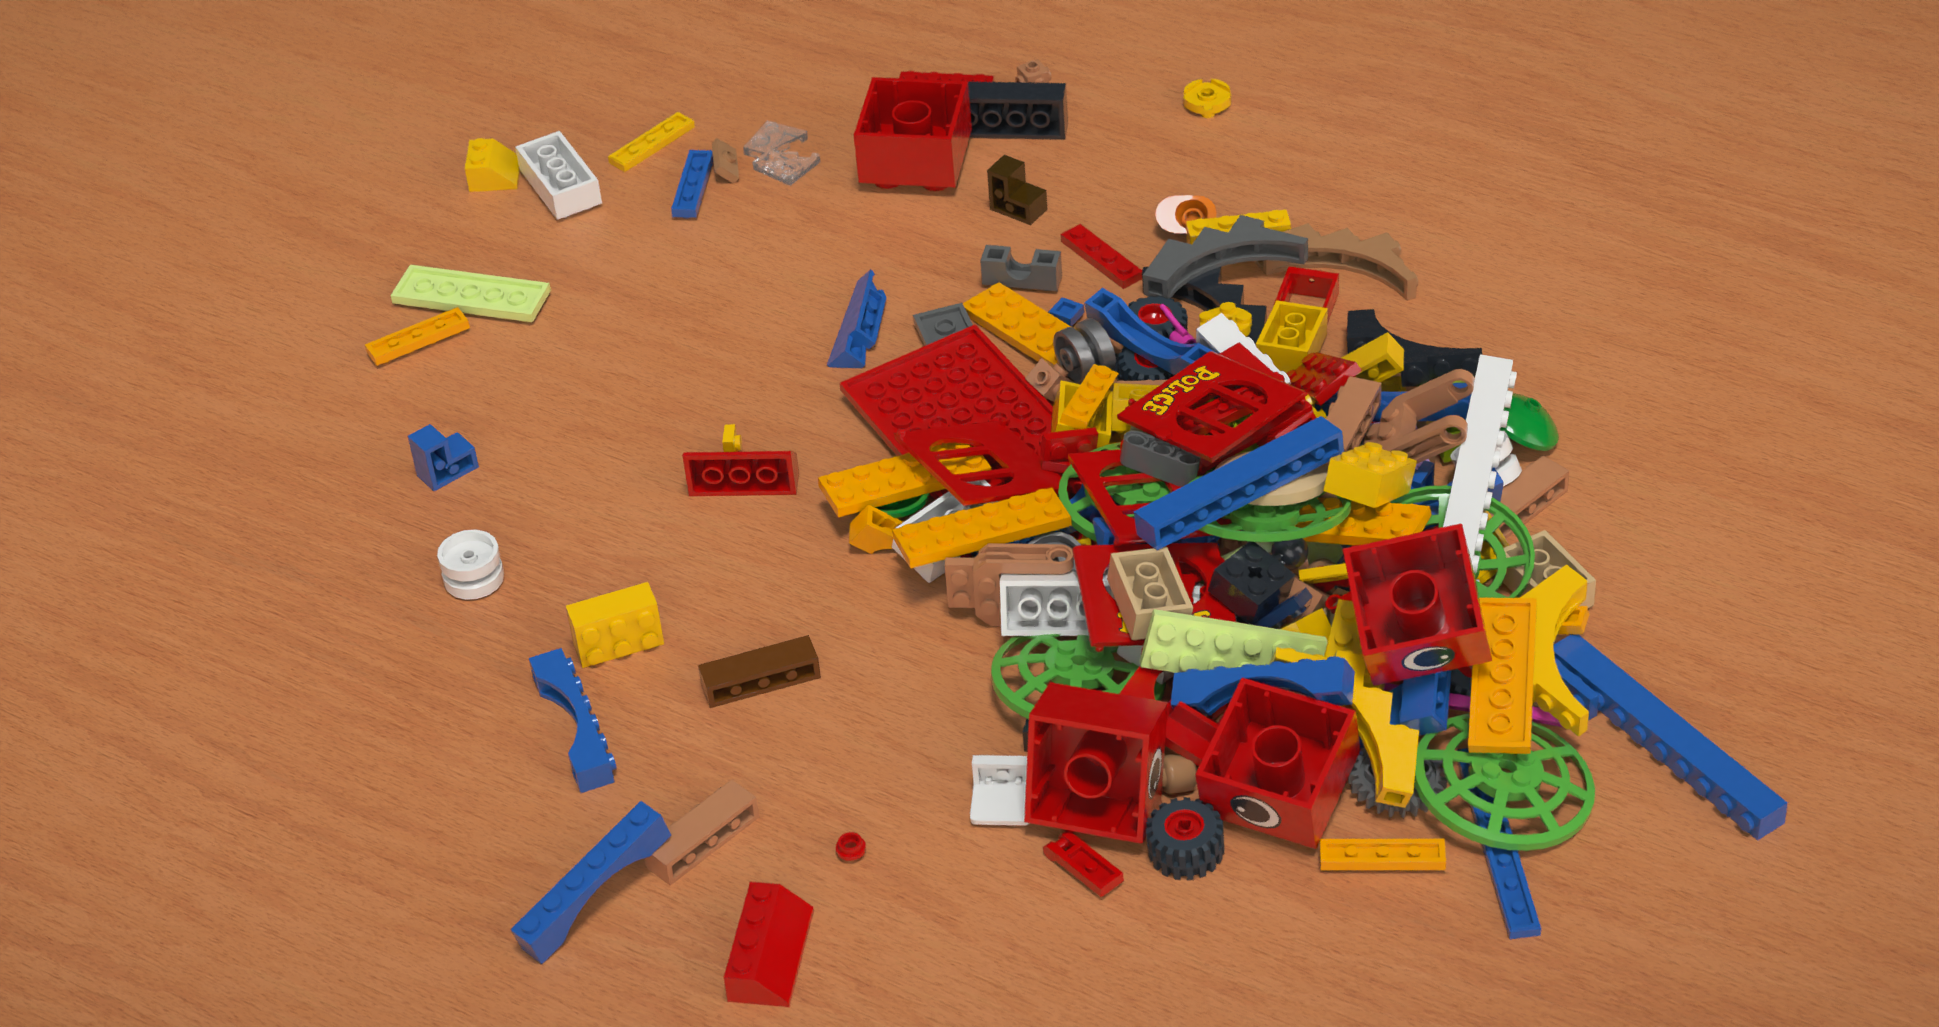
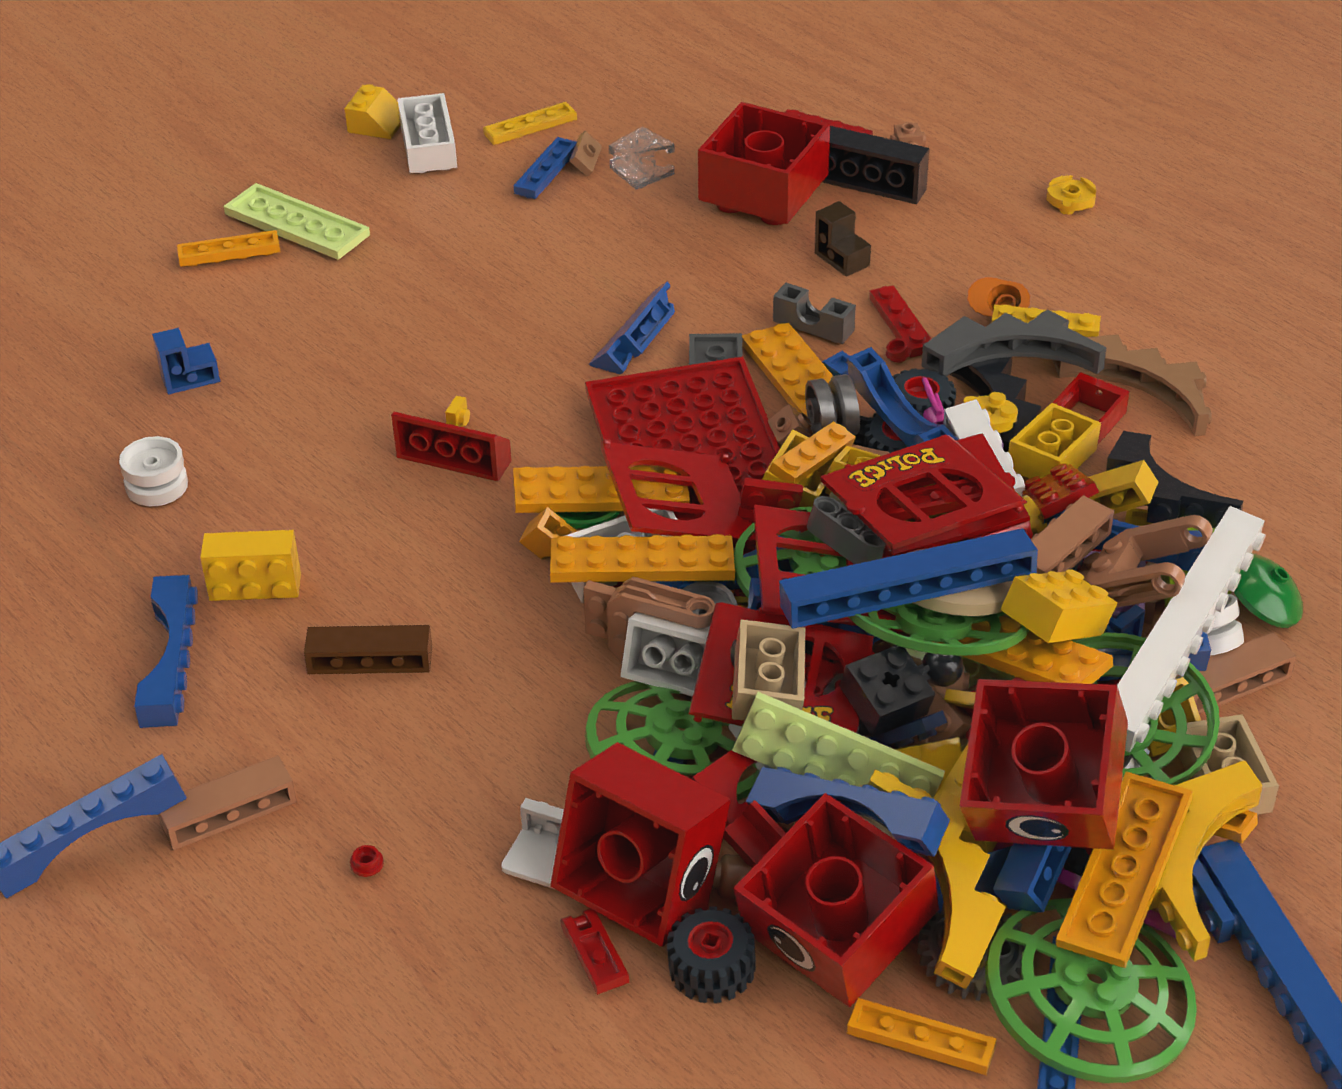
camera: 15 degrees right, 0 degrees up
(767, 946) = (226, 947): red slope -> none
(1113, 283) = (898, 350): none -> red plate

